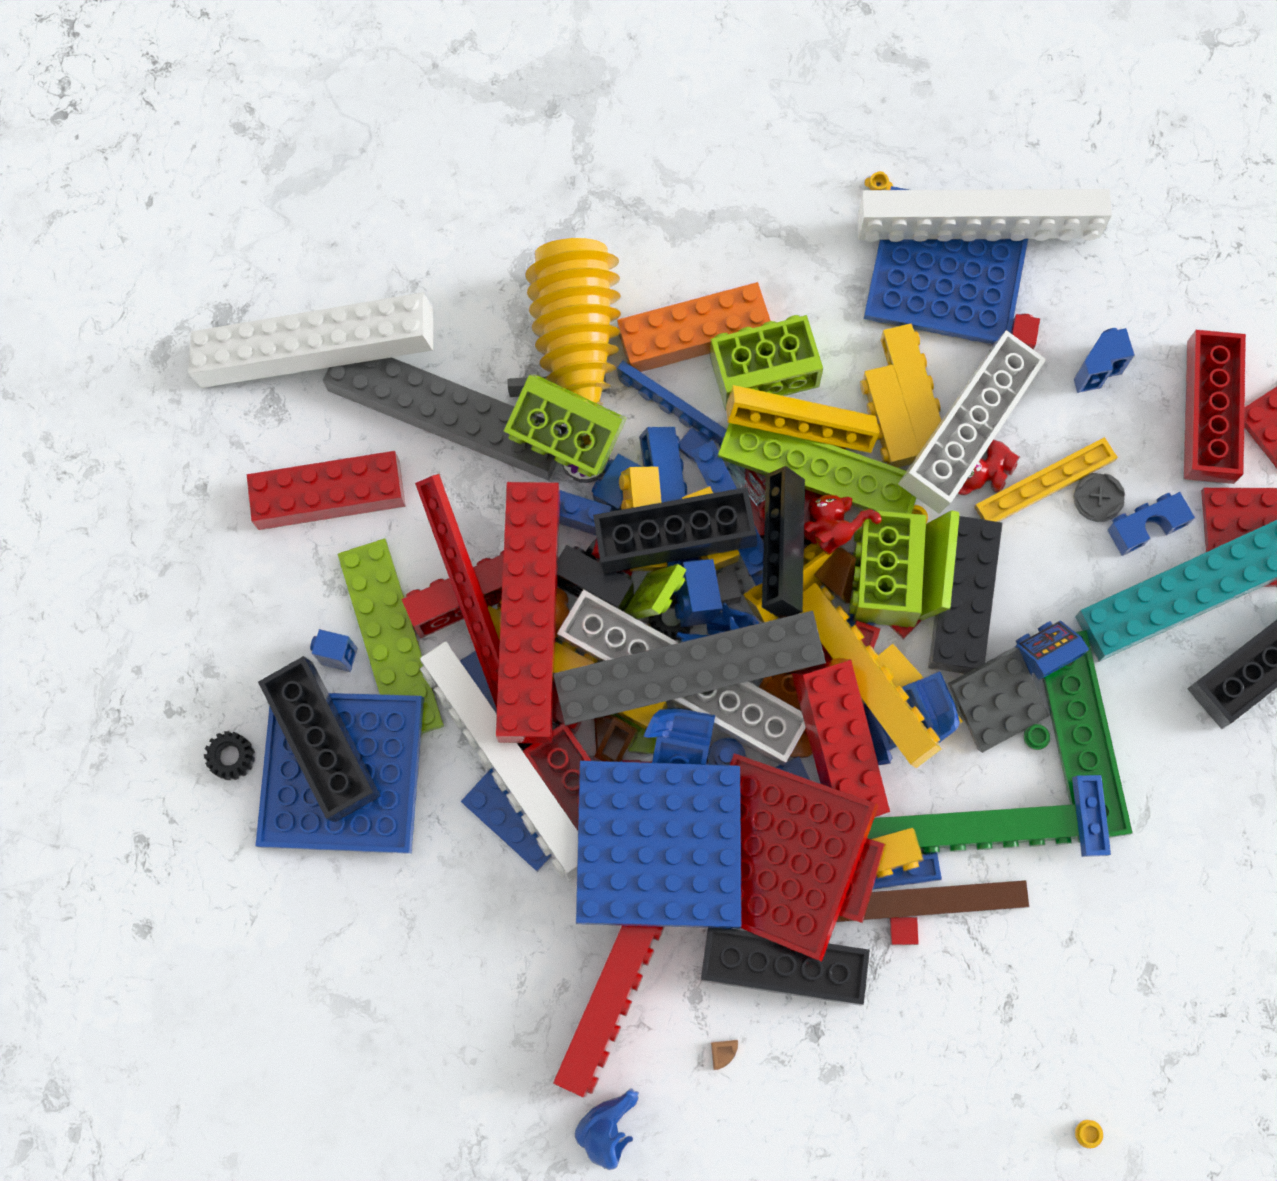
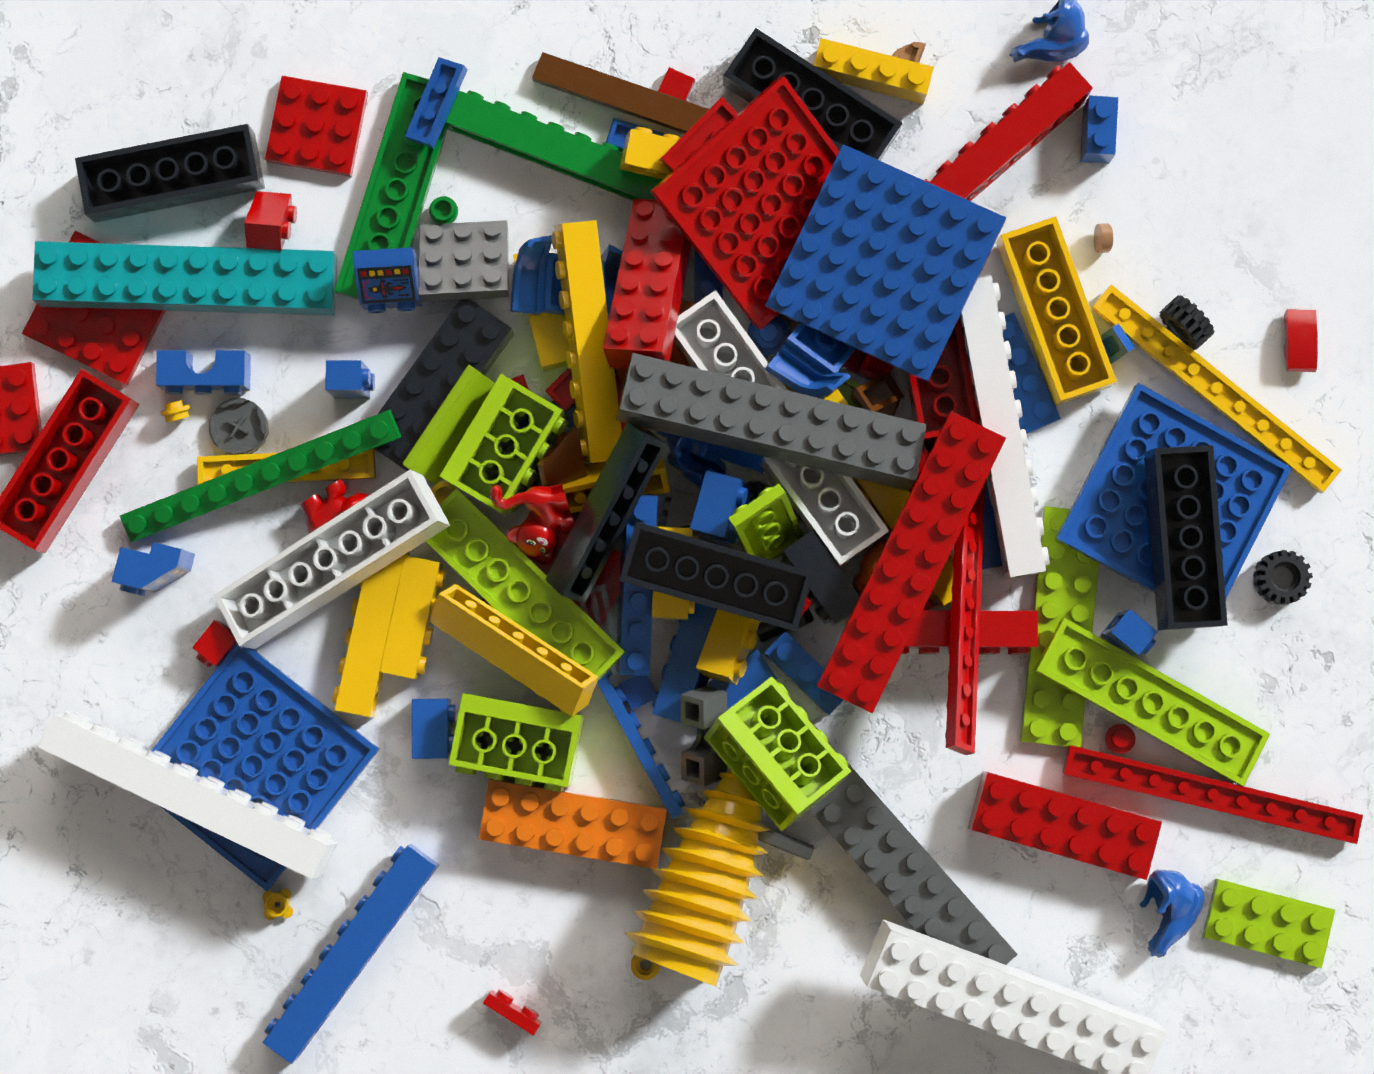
camera: 155 degrees left, 10 degrees up
(141, 494) = (1268, 923): none -> lime plate
(213, 470) = (1177, 902): none -> blue piece
(220, 565) = (1212, 794): none -> red plate
(288, 958) = (1301, 340): none -> red slope
(295, 609) = (1152, 702): none -> lime plate
(309, 575) = (1120, 738): none -> red plate
(344, 884) = (1217, 389): none -> yellow plate
(389, 924) = (1187, 322): none -> black tyre
(442, 881) = (1116, 343): none -> plate
(489, 968) = (1103, 238): none -> medium nougat tile
(502, 883) = (1055, 311): none -> yellow brick
(532, 1060) = (1099, 129): none -> blue brick
(636, 440) = (701, 709): none -> dark grey arch
(672, 187) = (523, 1017): none -> red plate
(747, 1020) = (874, 71): none -> yellow brick
(808, 175) = (350, 953): none -> blue brick
(834, 347) = (432, 728): none -> blue brick
(1036, 563) = (348, 379): none -> blue brick
(1059, 463) = (260, 475): none -> green plate
(1153, 484) = (175, 411): none -> yellow plate
(1168, 657) = (269, 220): none -> red brick
(1176, 758) = (316, 126): none -> red plate

